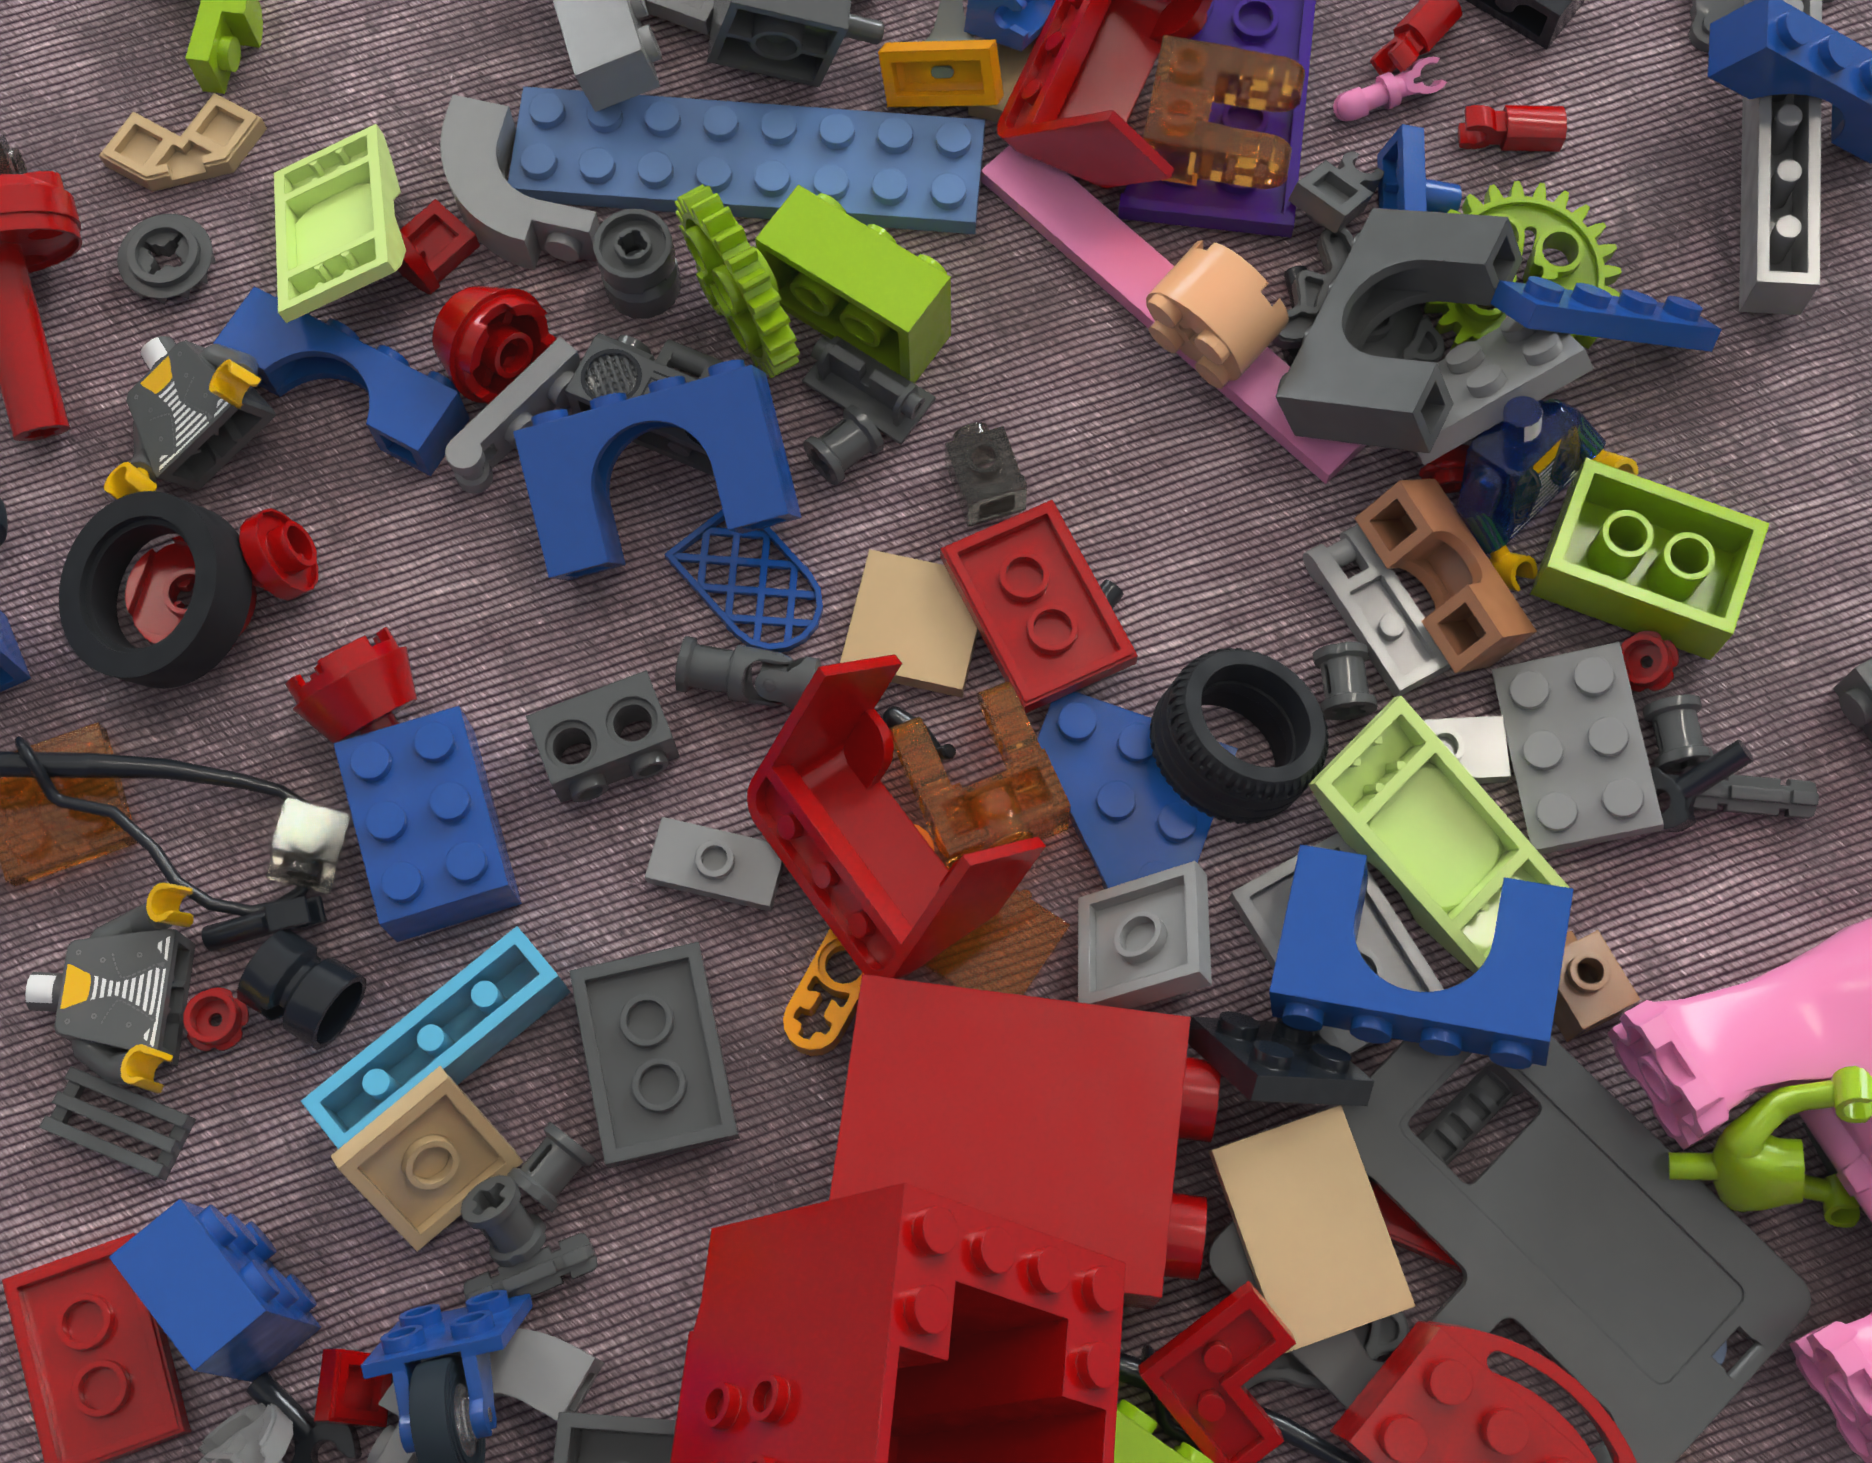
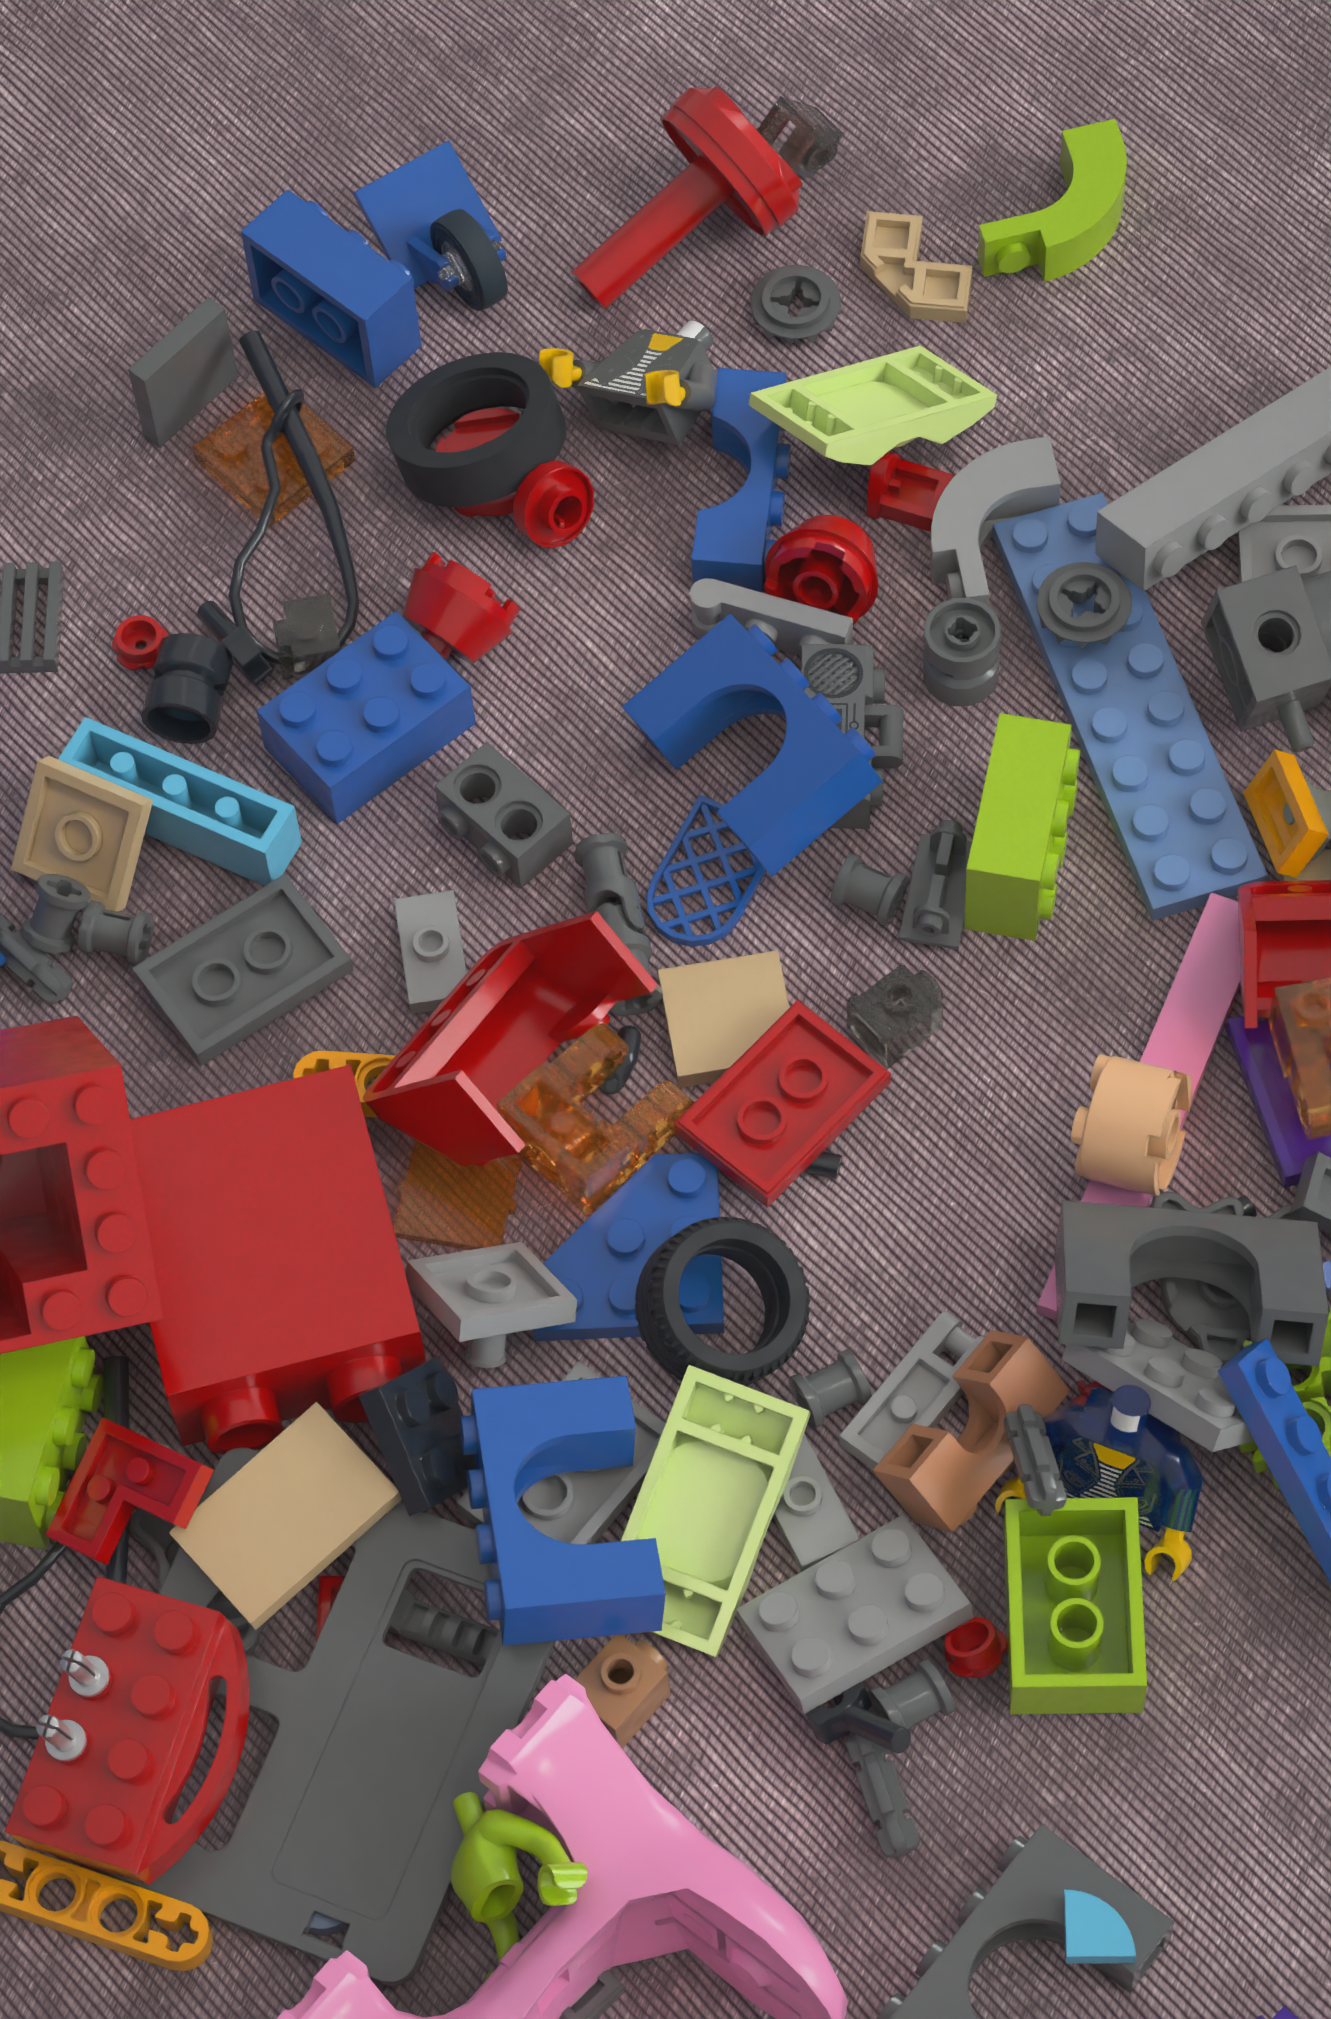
camera: 70 degrees right, 10 degrees down
(124, 991) = (132, 568): dark grey torso -> none
(655, 120) = (1076, 584): none -> dark grey gear
(737, 280) = (959, 722): lime gear -> none
(1521, 525) = (1035, 1460): none -> dark grey axle

